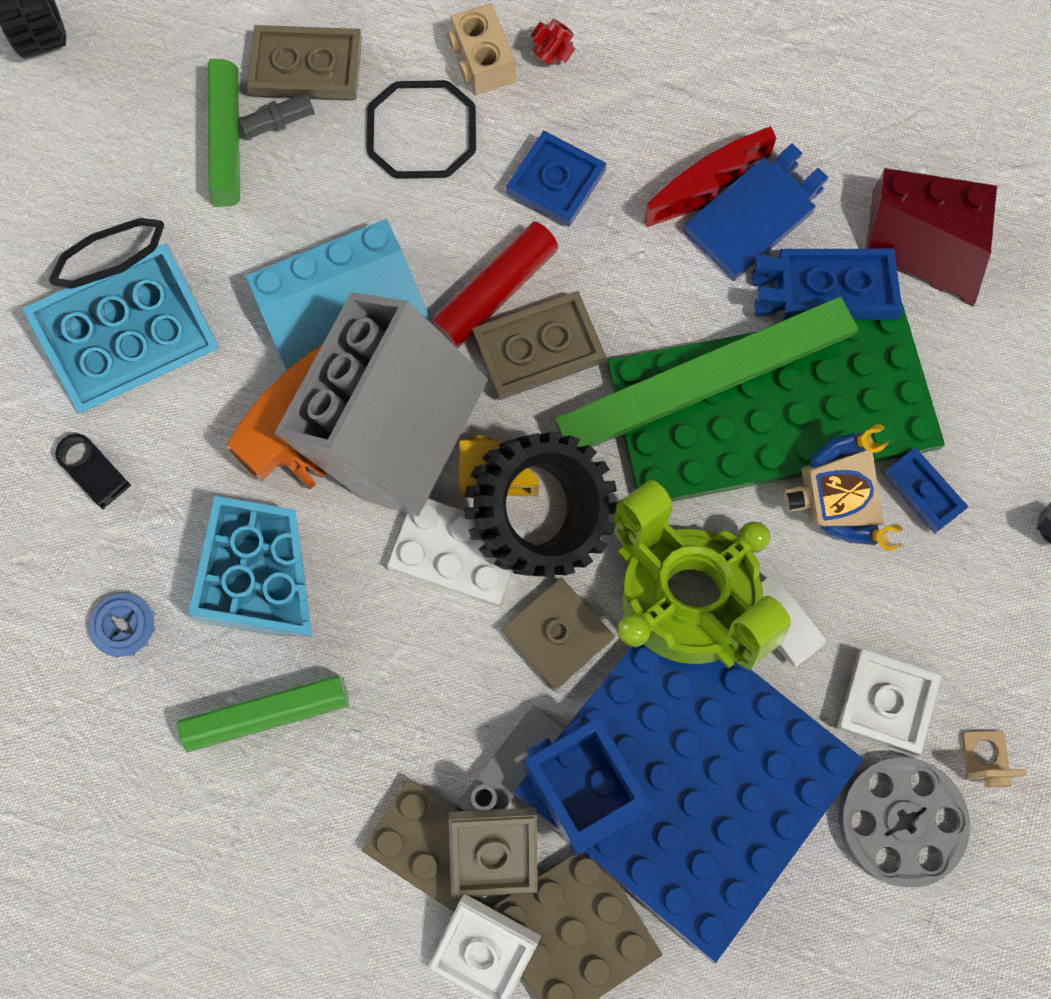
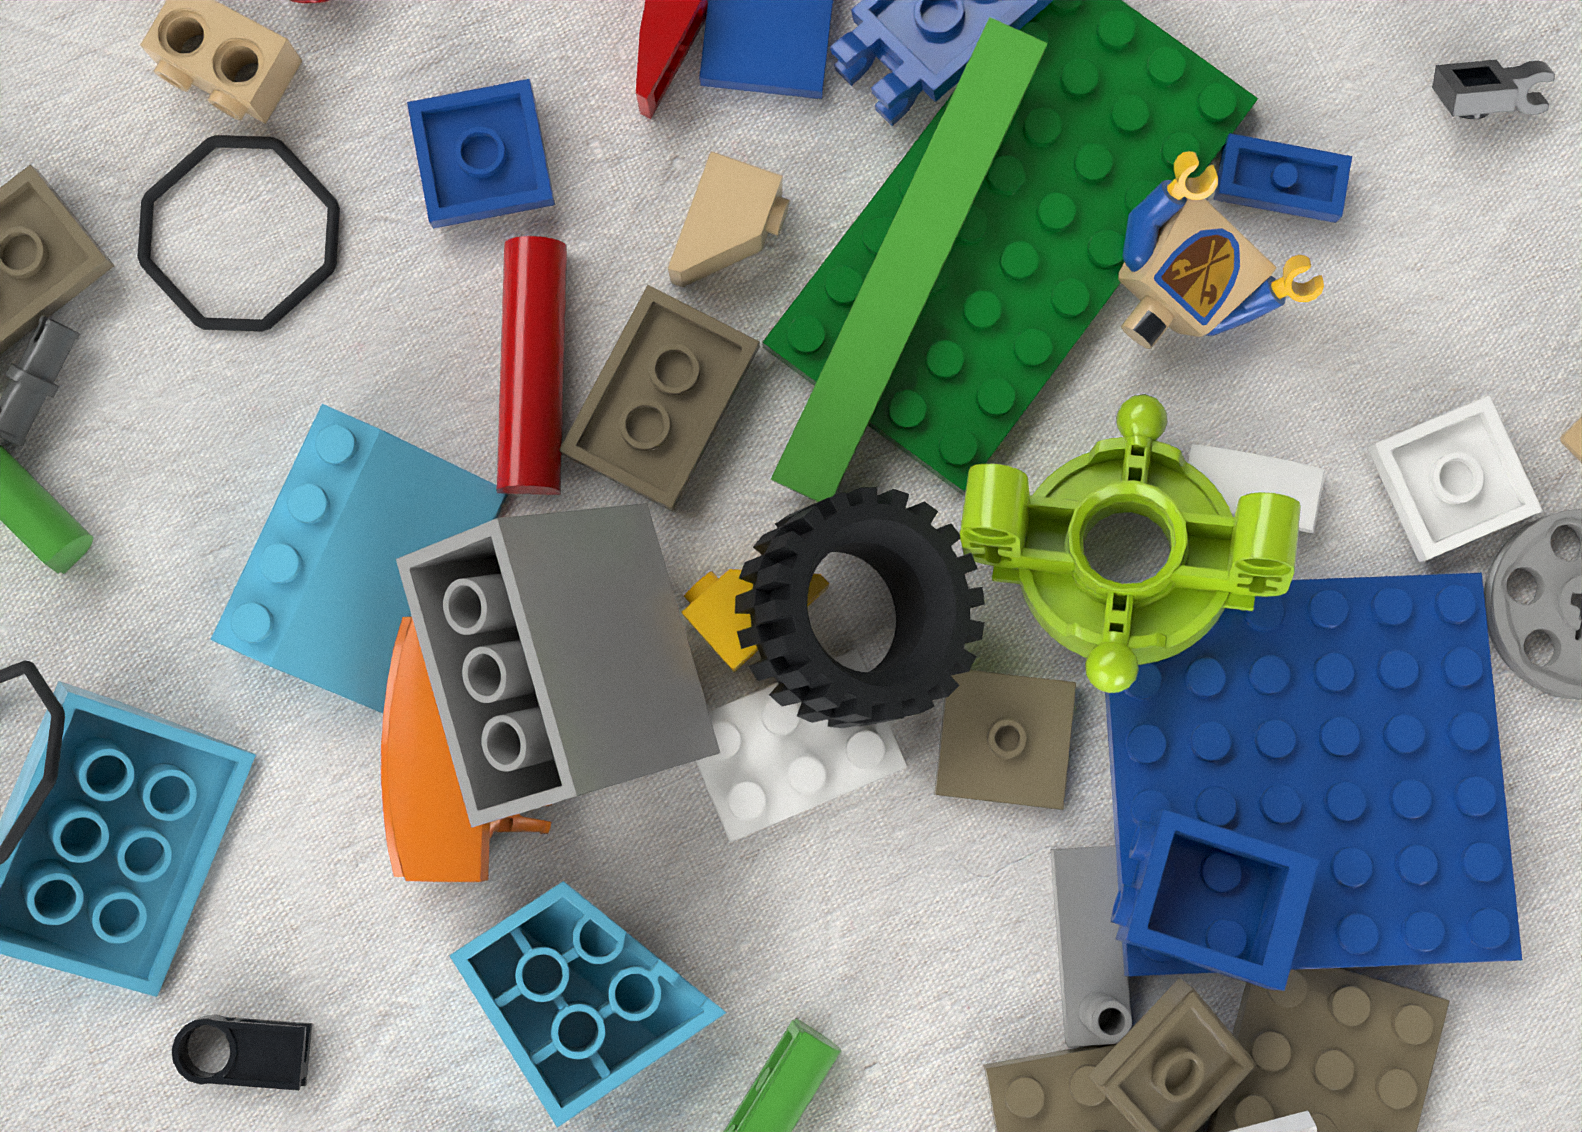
camera: 45 degrees left, 10 degrees up
(639, 293) = (727, 218): none -> tan slope

